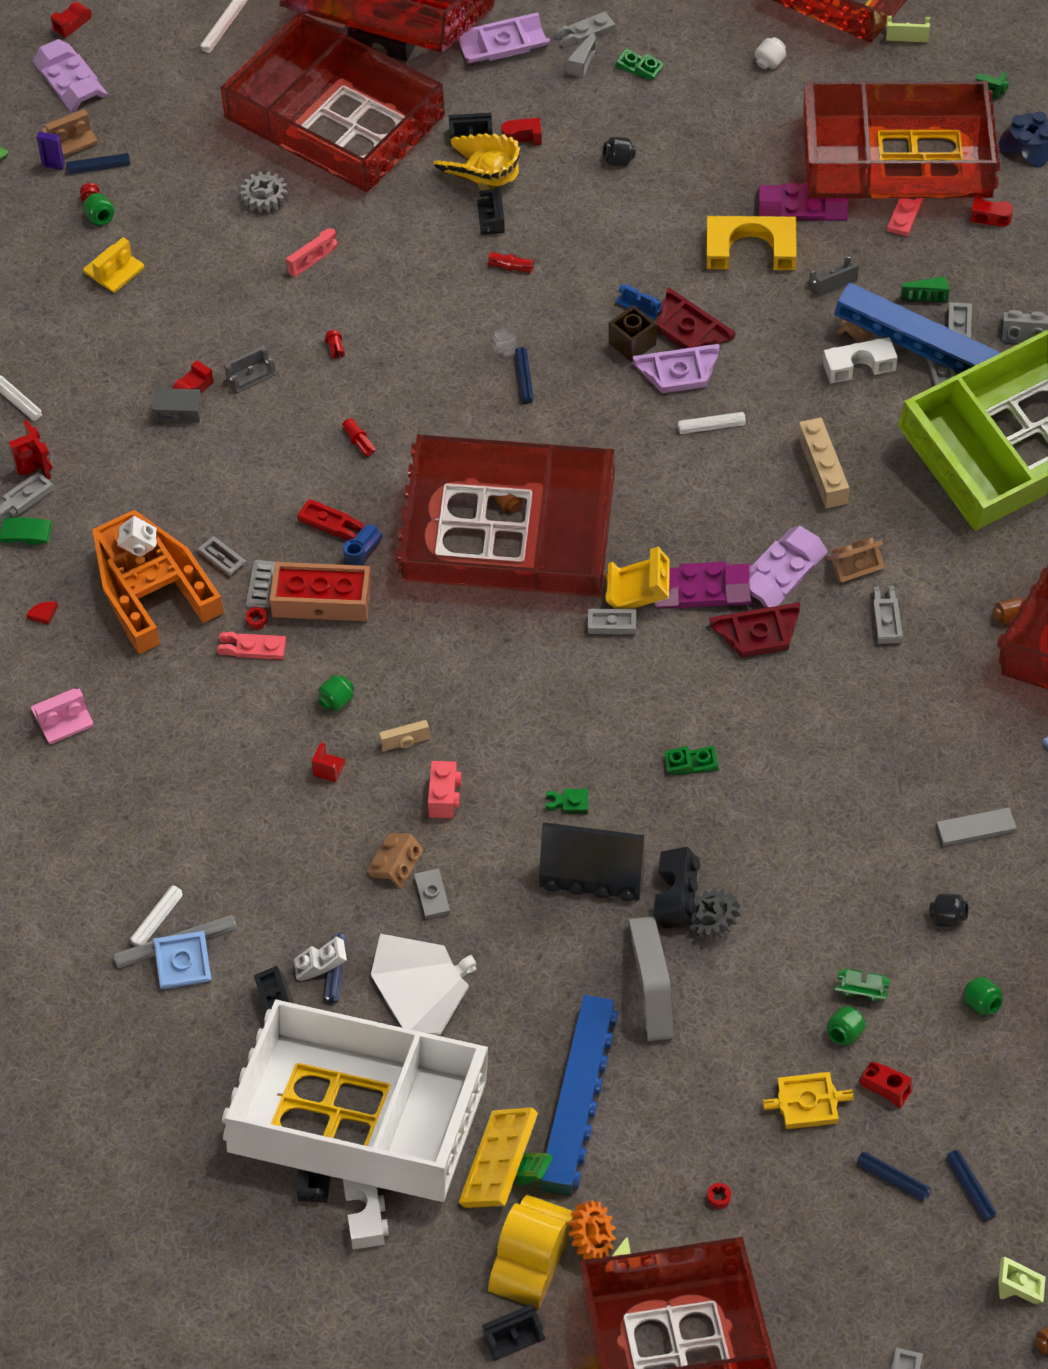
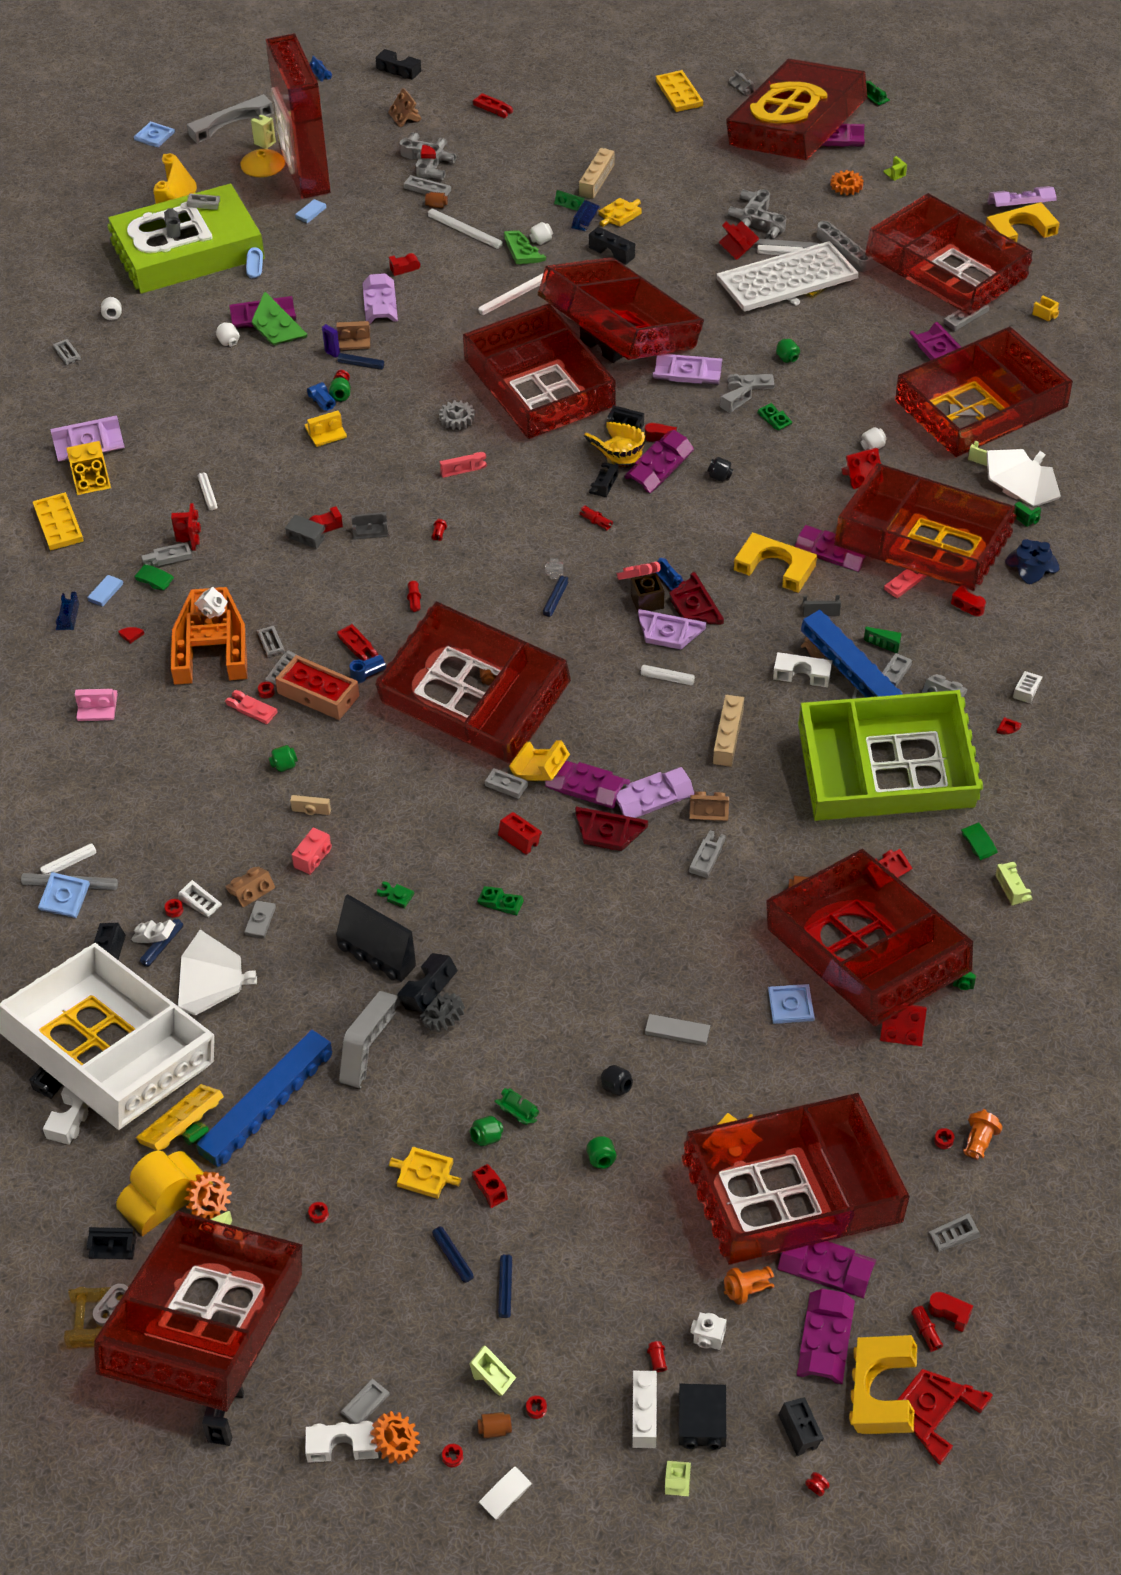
camera: 25 degrees right, 5 degrees down
(76, 223) = (320, 394): none -> blue piece
(326, 765) = (246, 803): red panel -> none
(328, 926) = (175, 912): none -> red bush
(335, 905) = (199, 891): none -> white slope
(544, 164) = (660, 460): none -> magenta piece
(609, 310) = (639, 570): none -> coral hinge
(665, 673) = (519, 833): none -> red hinge
(782, 93) = (860, 465): none -> red bracket
(964, 42) = (1022, 477): none -> white panel

